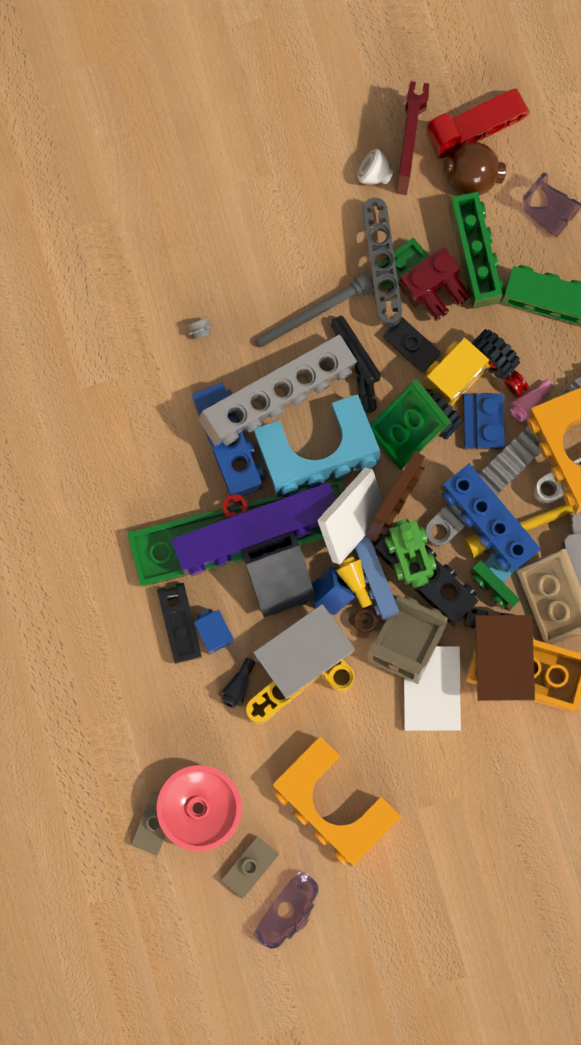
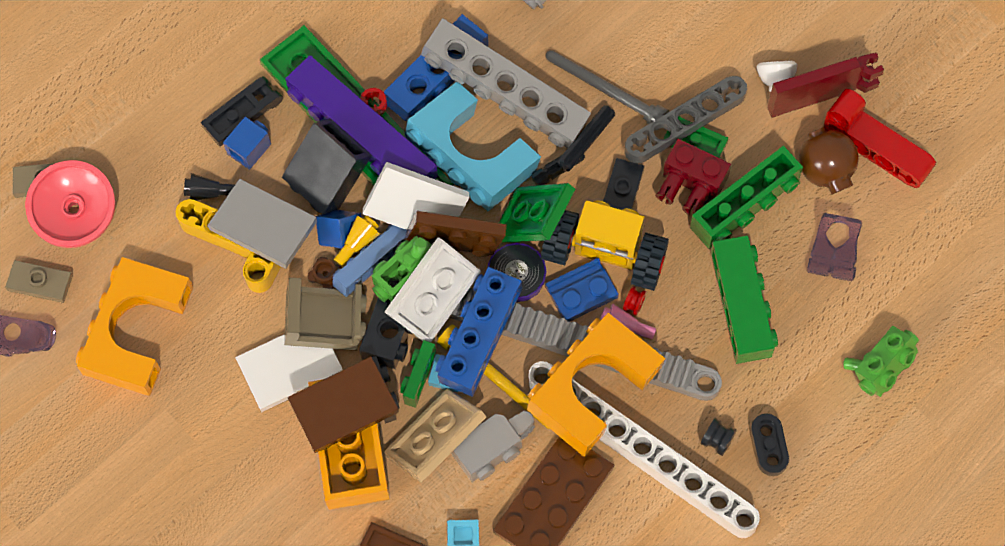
camera: 70 degrees right, 10 degrees down
(440, 539) = (433, 291): none -> white tile
(441, 462) = (521, 263): none -> black tile

